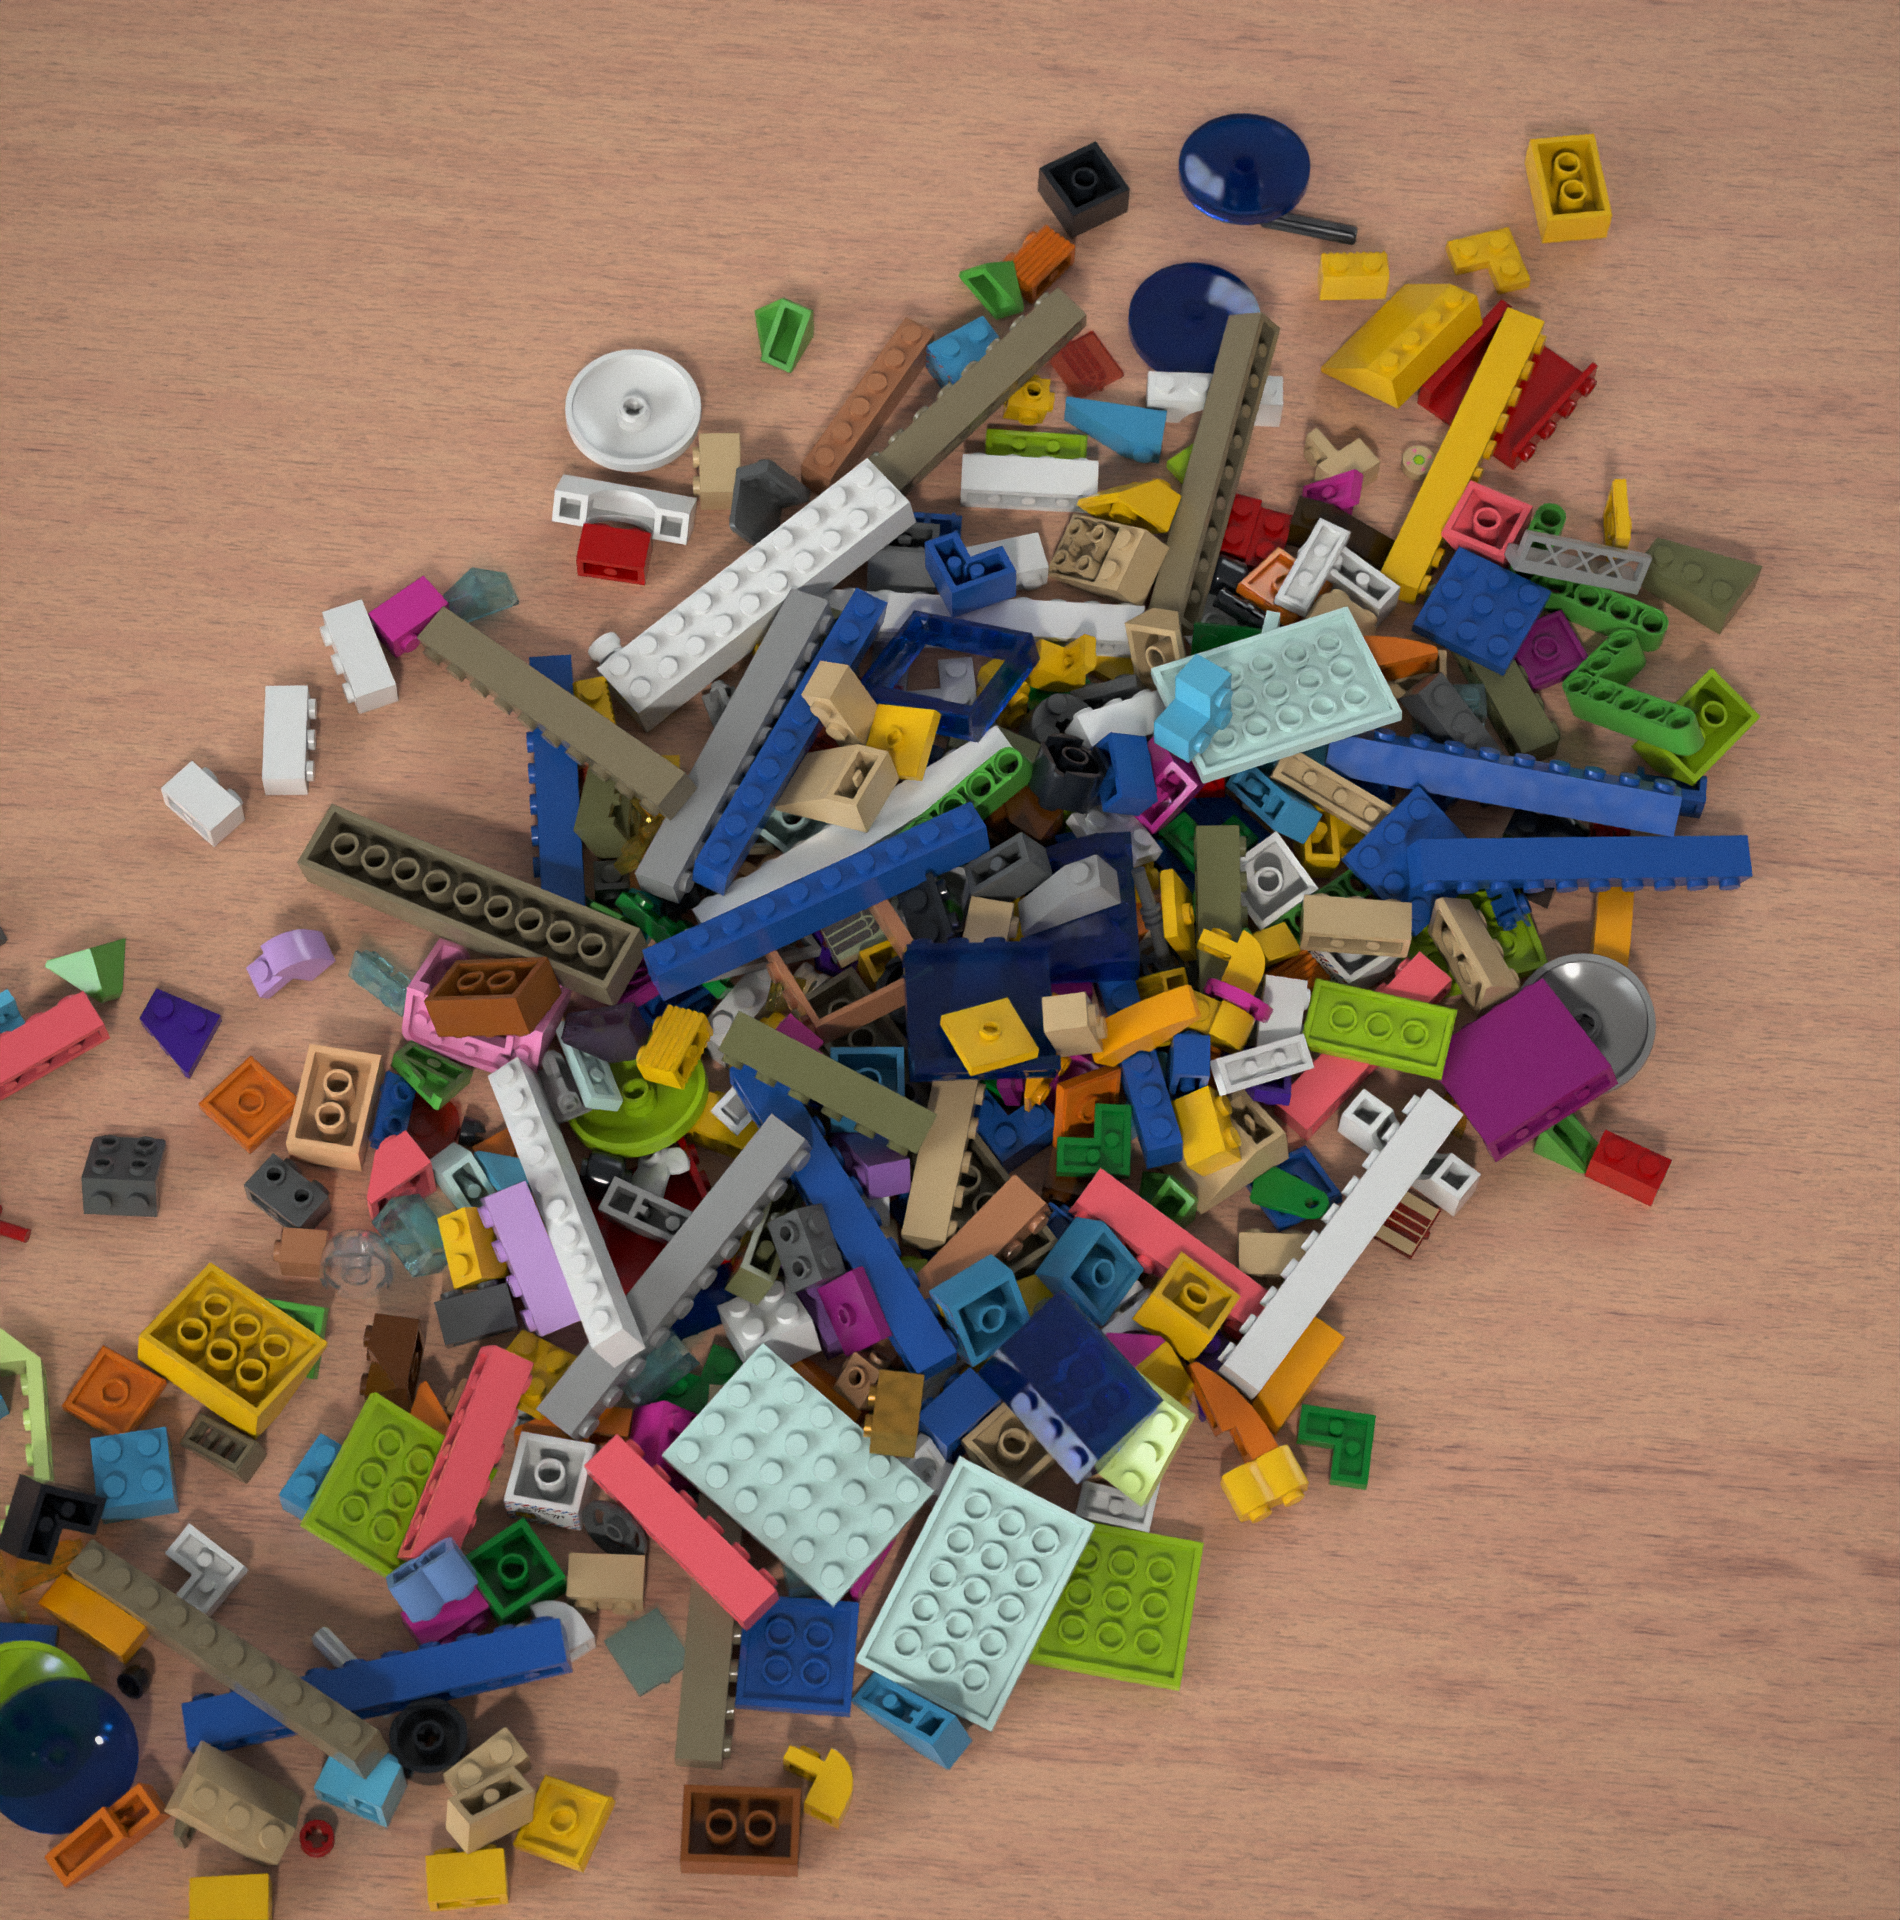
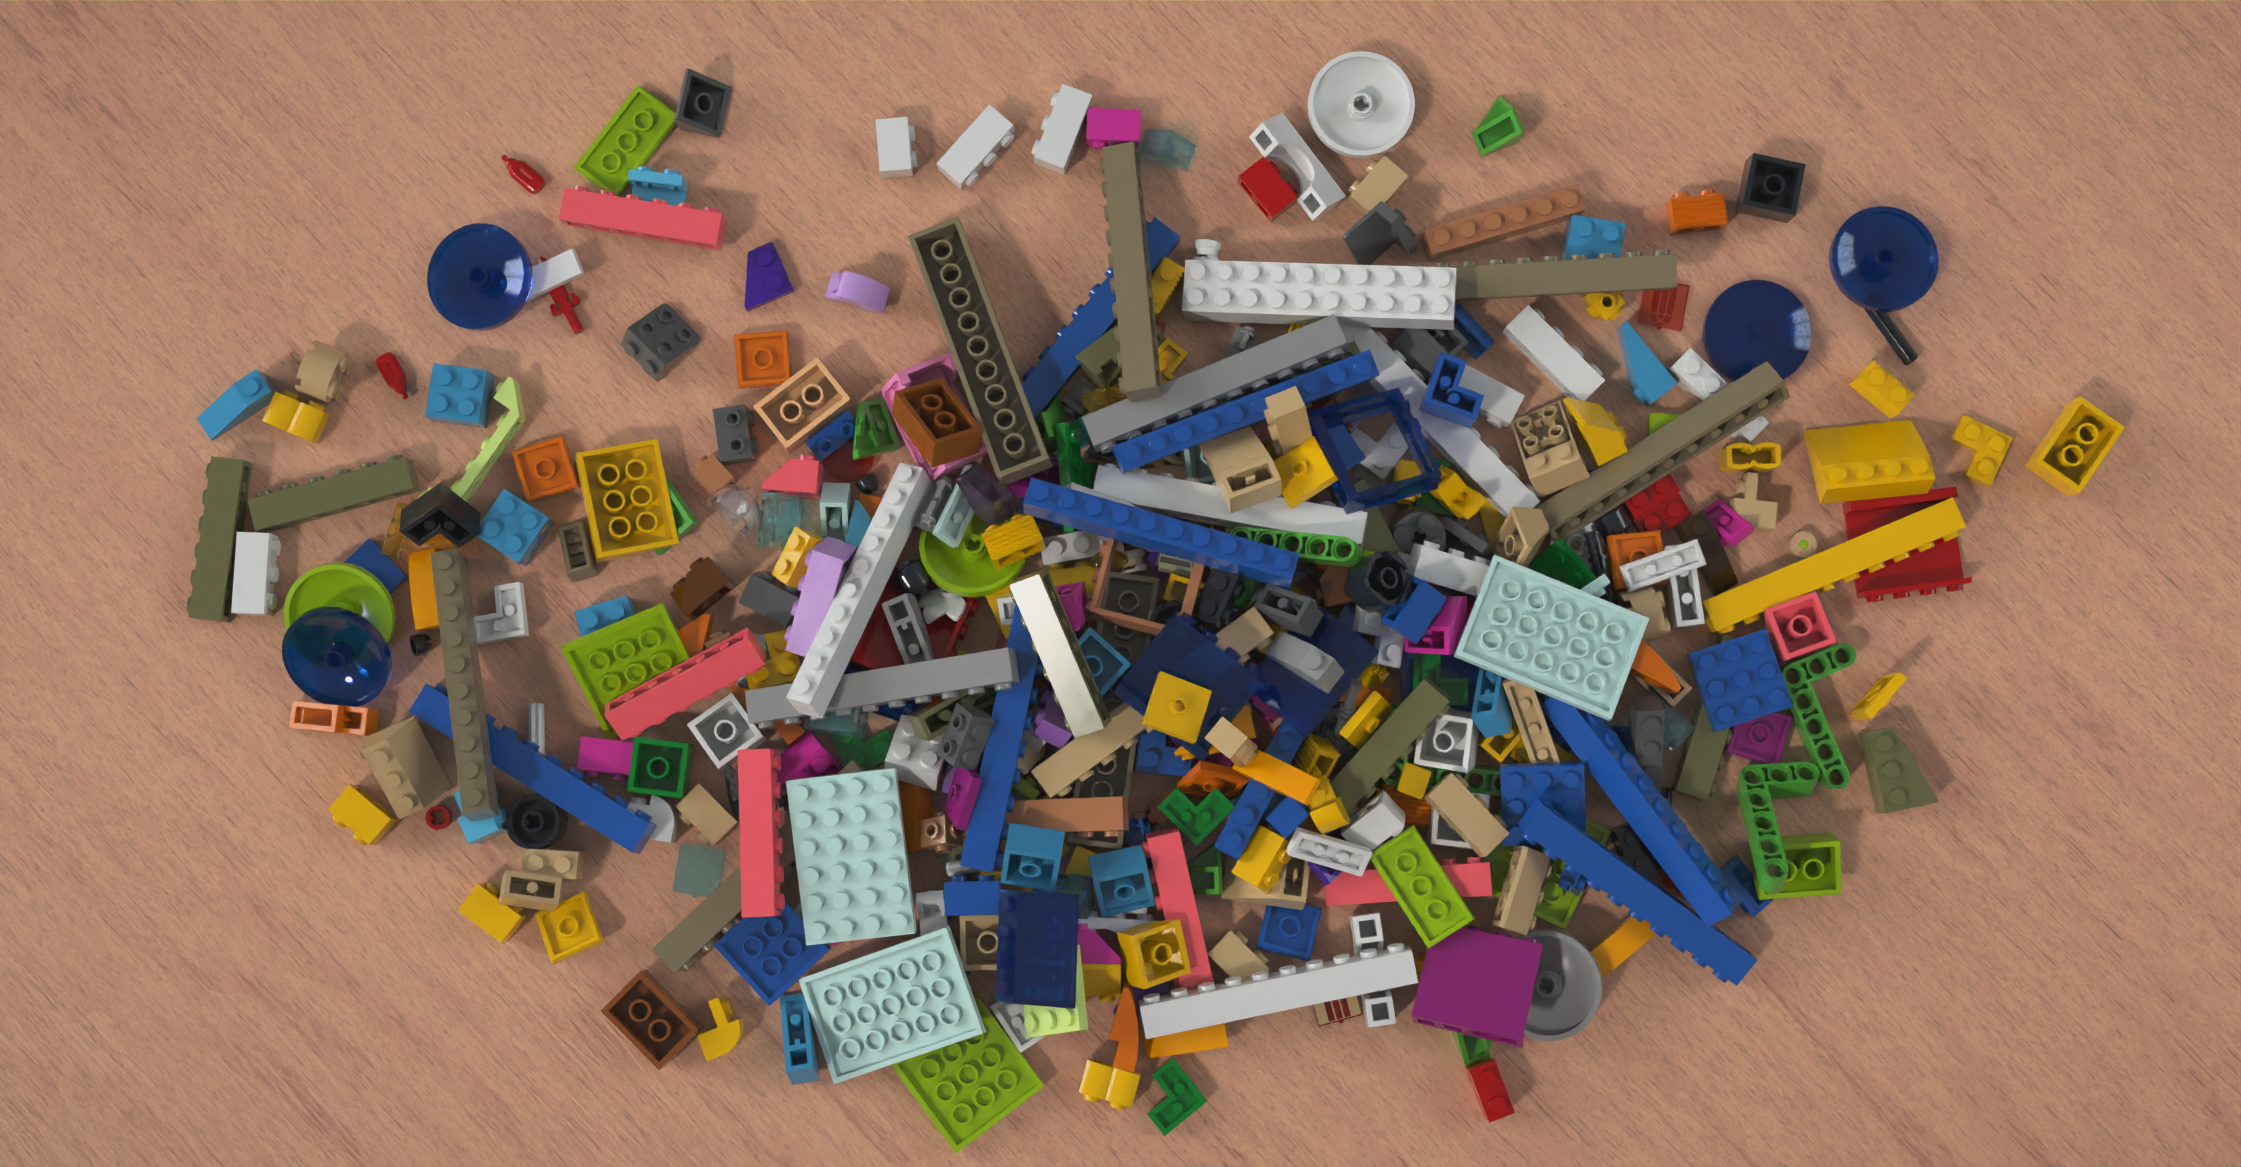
camera: 45 degrees right, 20 degrees up
(94, 970) = (747, 199): bright green slope -> none
(373, 973) = (898, 335): clear light blue hinge -> none
(432, 1580) = (604, 739): medium blue brick -> none
(895, 1414) = (928, 876): pearl gold brick -> none
(995, 287) = (1652, 207): bright green slope -> none
(1035, 444) = (1581, 333): lime tile -> none
(1197, 711) = (1491, 612): medium azure brick -> none
(1244, 958) = (1375, 784): yellow brick -> none
(1249, 1003) = (1347, 805): dark pink tile -> none
(1288, 1194) = (1278, 934): green piece -> none
(1291, 423) = (1743, 456): none -> yellow brick
(1579, 569) = (1825, 703): light grey fence -> none

